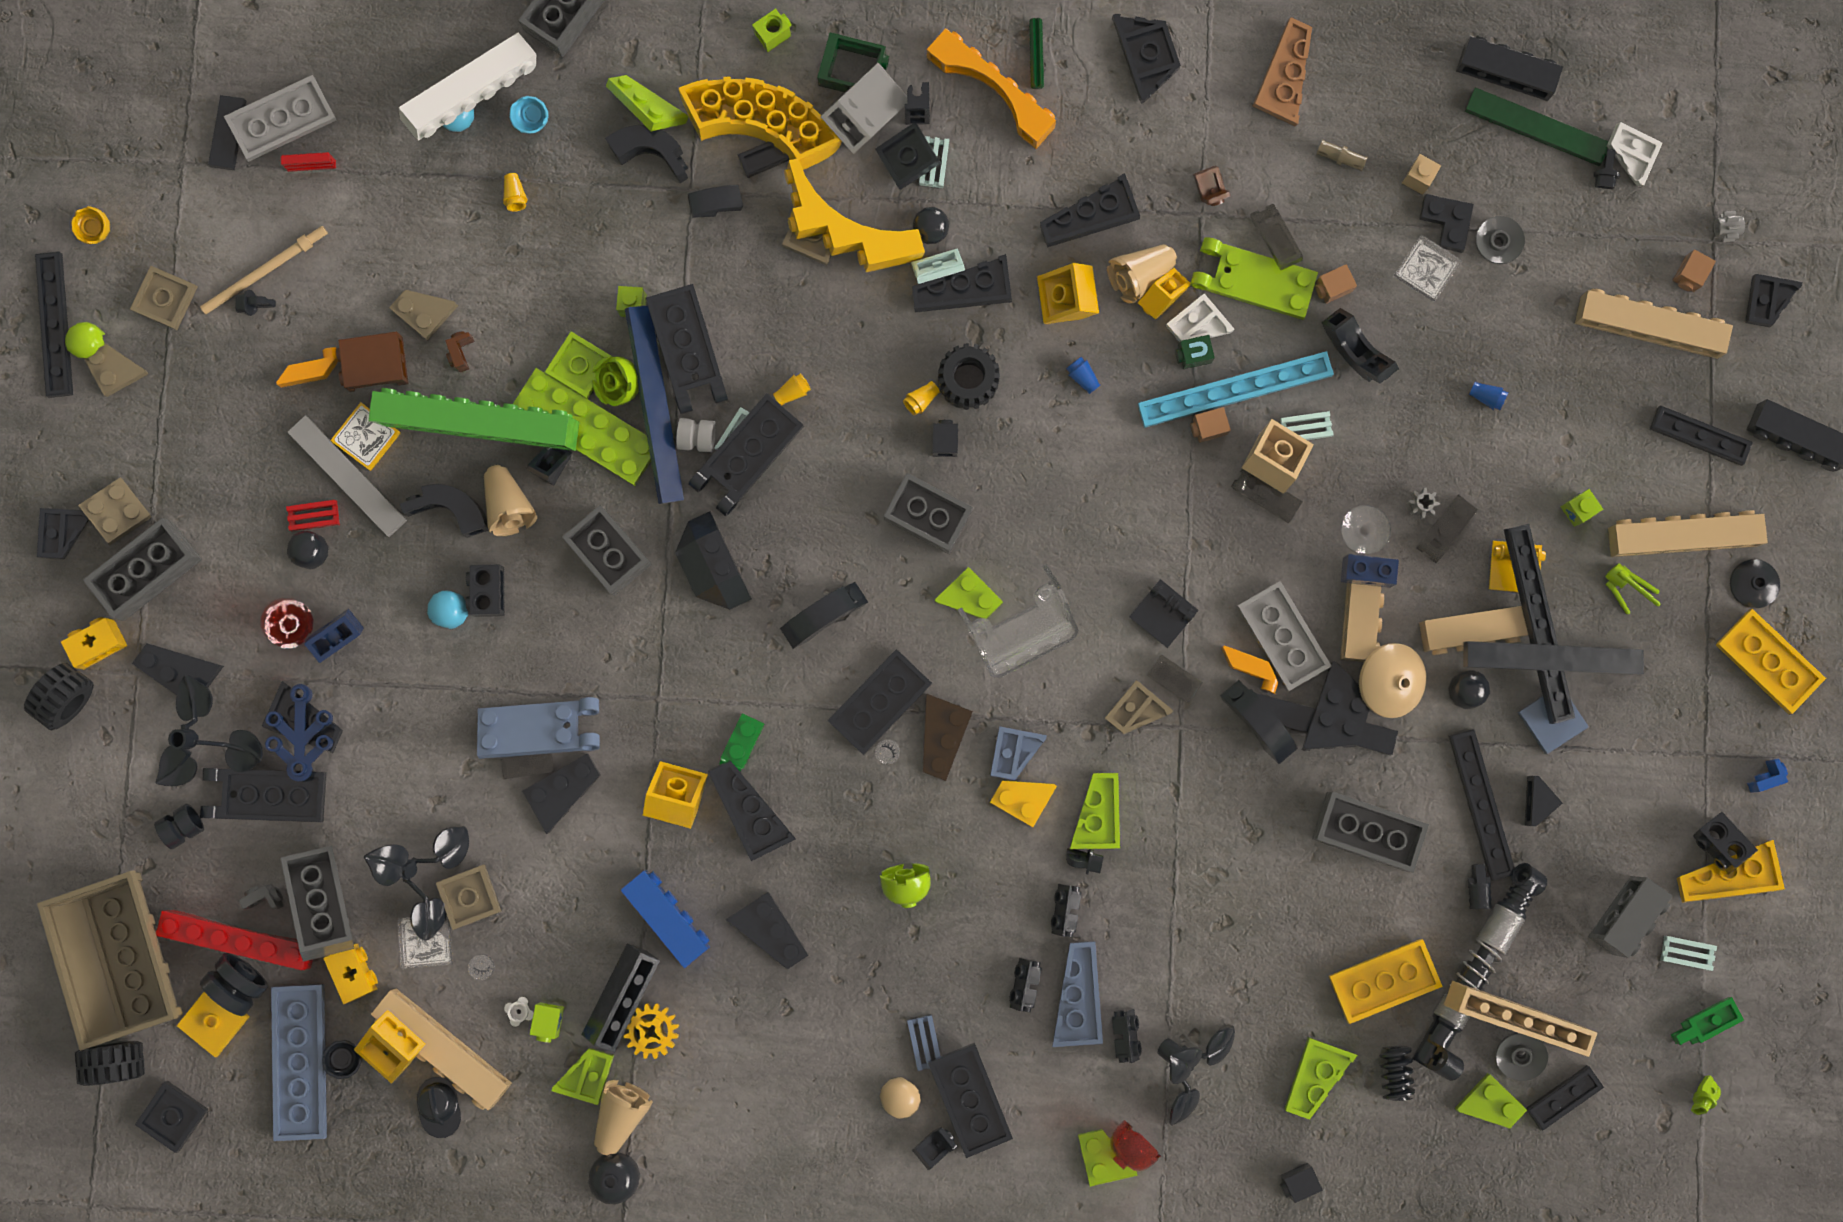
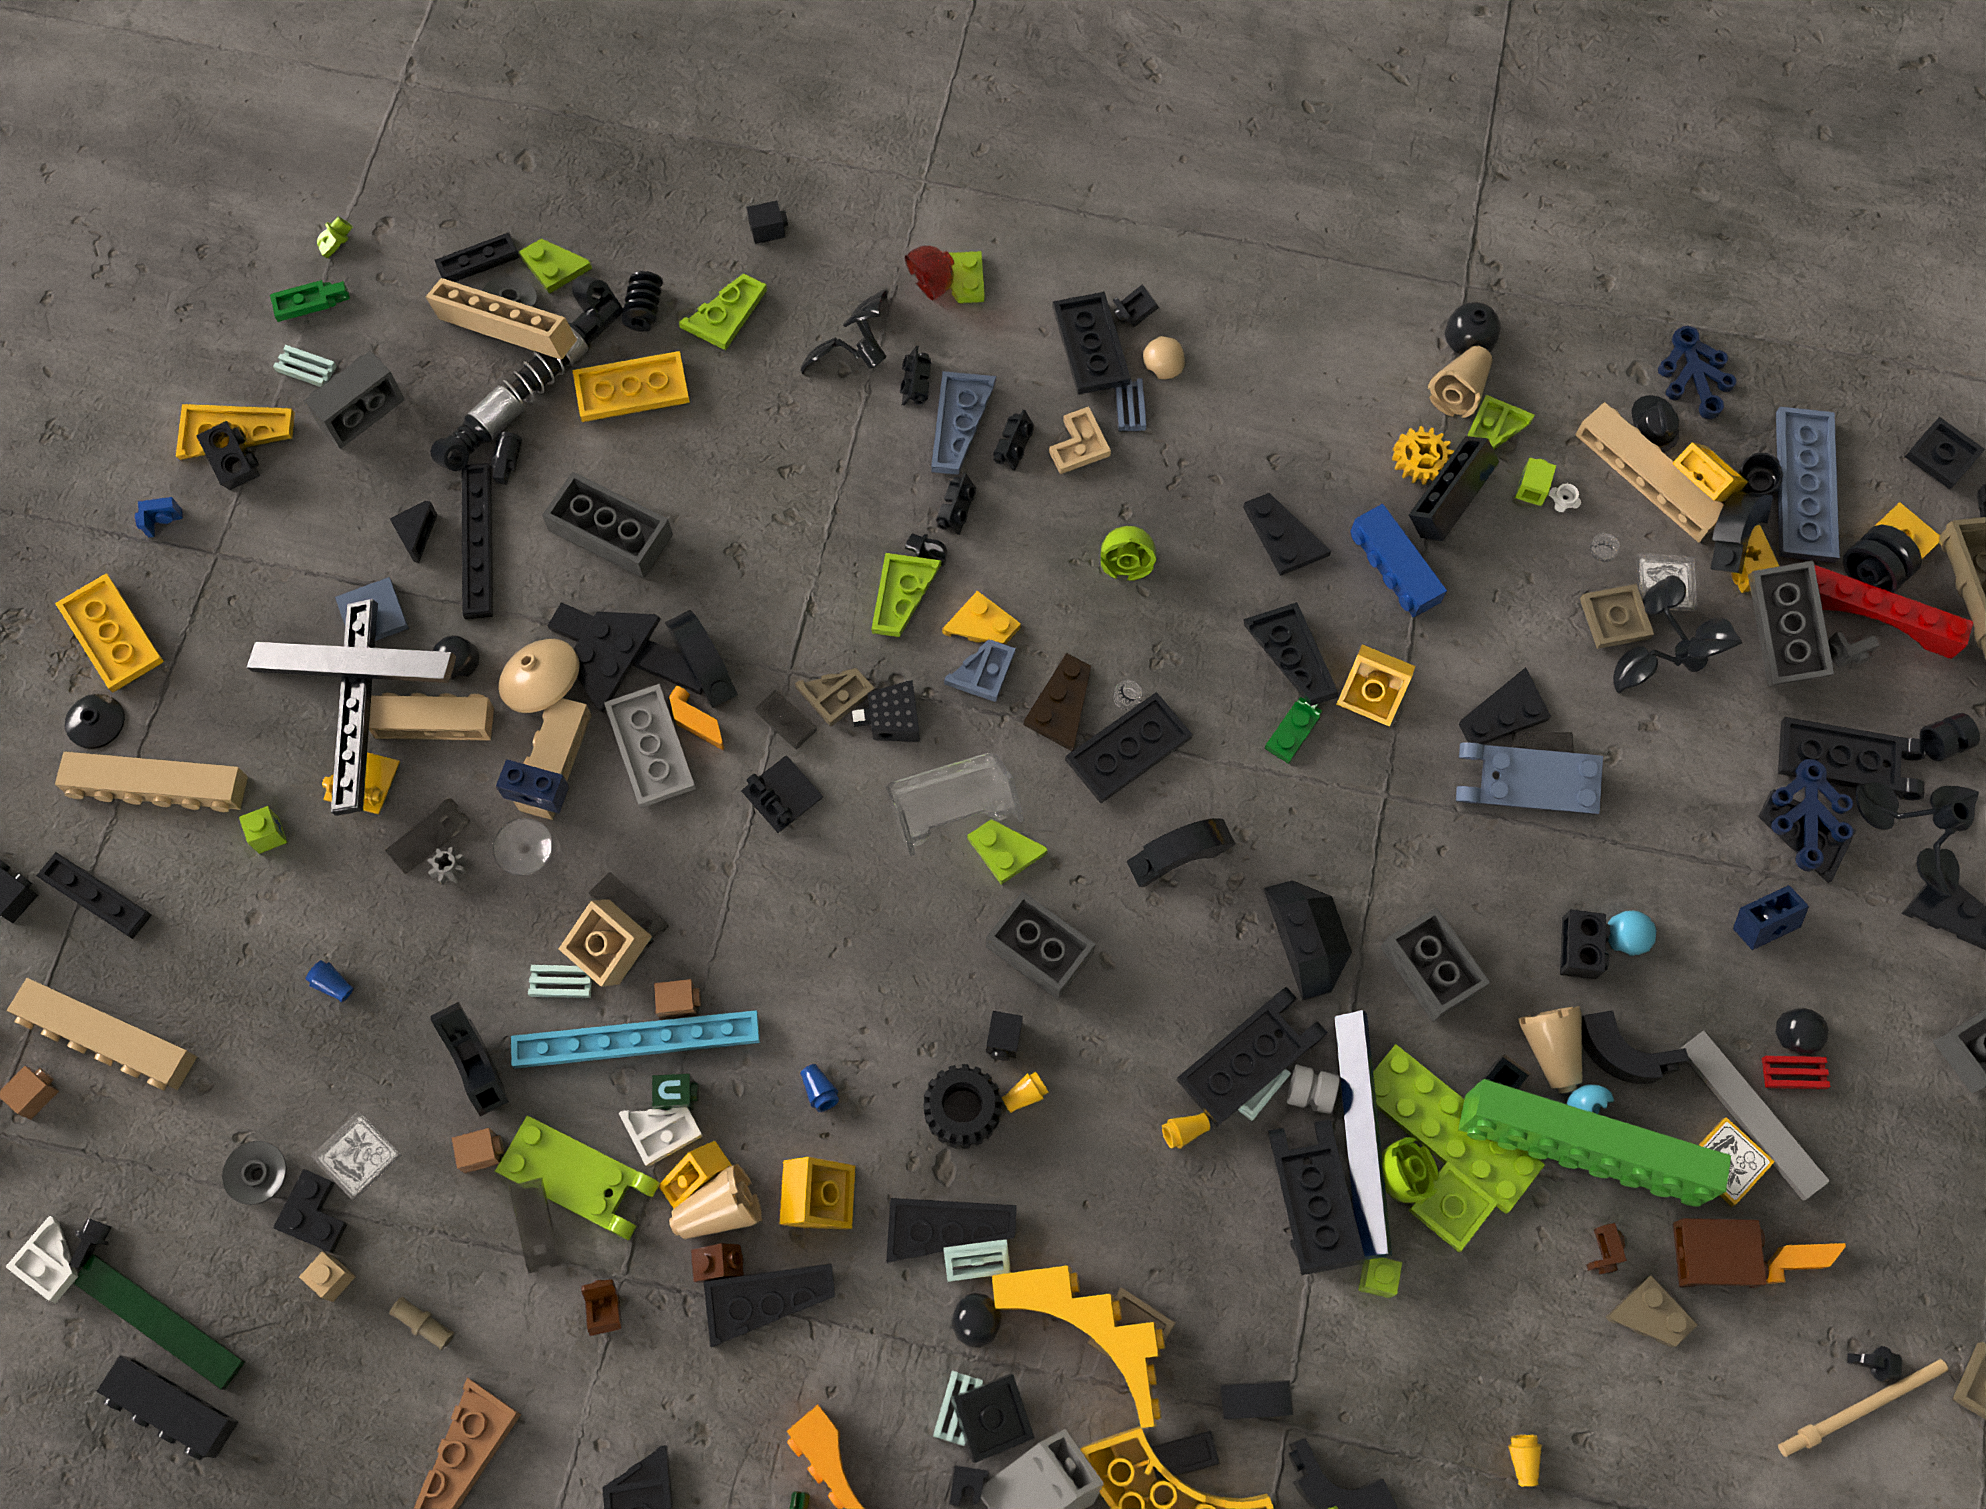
camera: 175 degrees left, 15 degrees down
(286, 622) = (1829, 940): clear red cylinder -> none
(365, 998) = (1734, 529): none -> black arch
(401, 1172) = (1698, 370): none -> dark blue plant
(480, 459) = (1590, 1098): none -> medium azure hair
(958, 989) = (1086, 443): none -> tan plate
(1086, 697) = (891, 713): none -> black torso
(1132, 233) = (717, 1262): none -> reddish brown bracket
(1620, 576) = (245, 749): lime plant -> none

